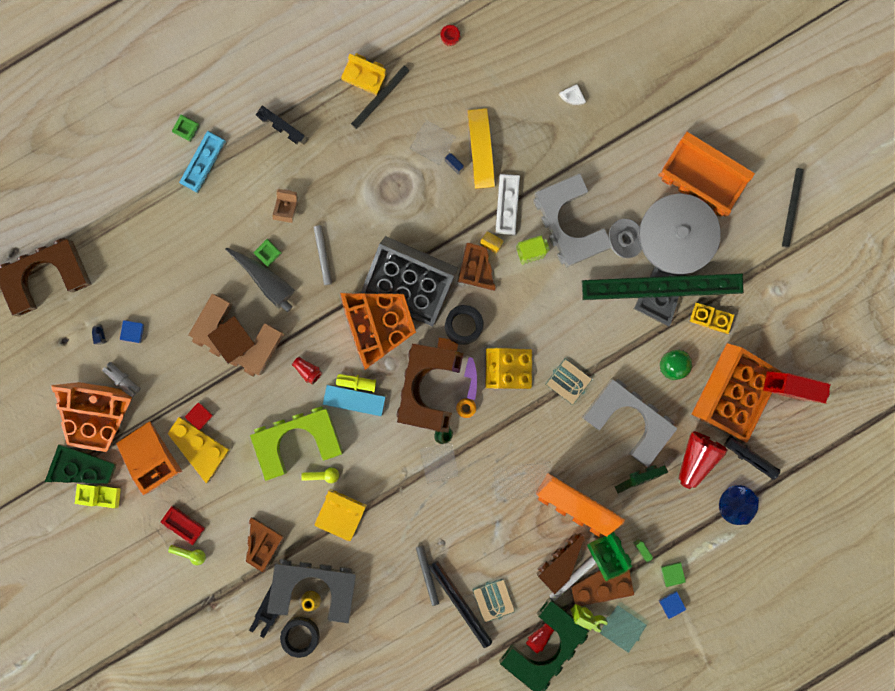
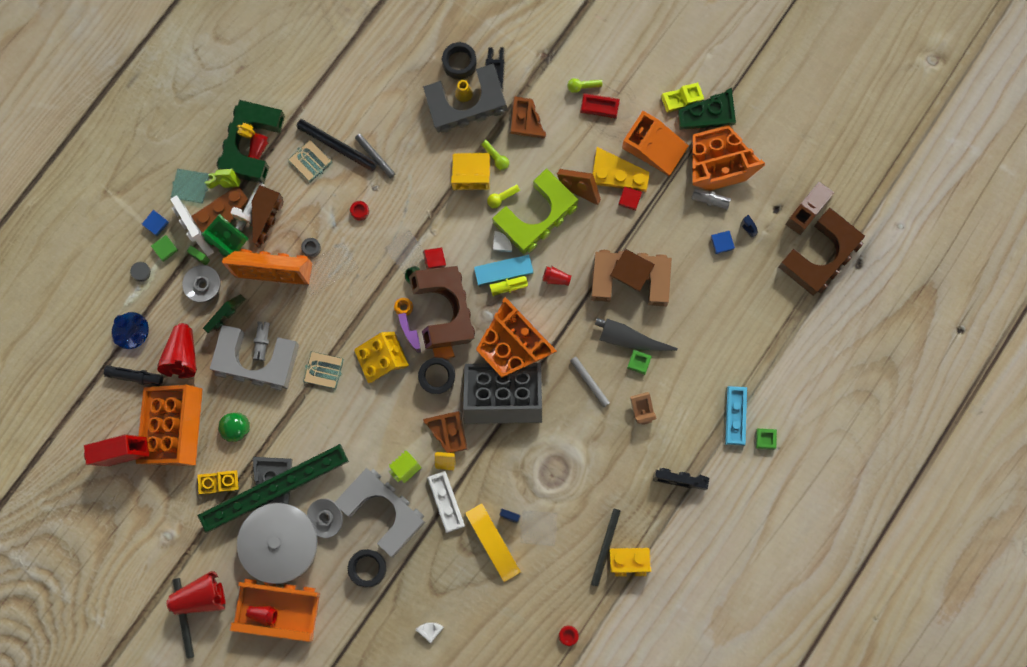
camera: 160 degrees right, 10 degrees down
(31, 325) = (809, 208): none -> reddish brown slope
(240, 450) = (581, 184): none -> dark orange wing
(306, 512) = (501, 162): none -> lime bar
(343, 428) = (501, 242): none -> white tile
(415, 442) = (434, 258): none -> red tile
(467, 525) = (359, 210): none -> red tile
(530, 509) = (311, 247): none -> dark grey tile
(544, 657) = (245, 130): none -> yellow plate
(584, 570) = (237, 214): none -> white tile
(610, 161) = (352, 568): none -> black tyre
(616, 436) = (261, 341): none -> light grey pin
(637, 573) = (188, 223): none -> white wing
(660, 524) = (197, 276): none -> light grey dish
(705, 561) = (140, 271): none -> dark grey tile
(718, 175) = (263, 614): none -> red cone
(771, 217) = (198, 596): none -> red cone

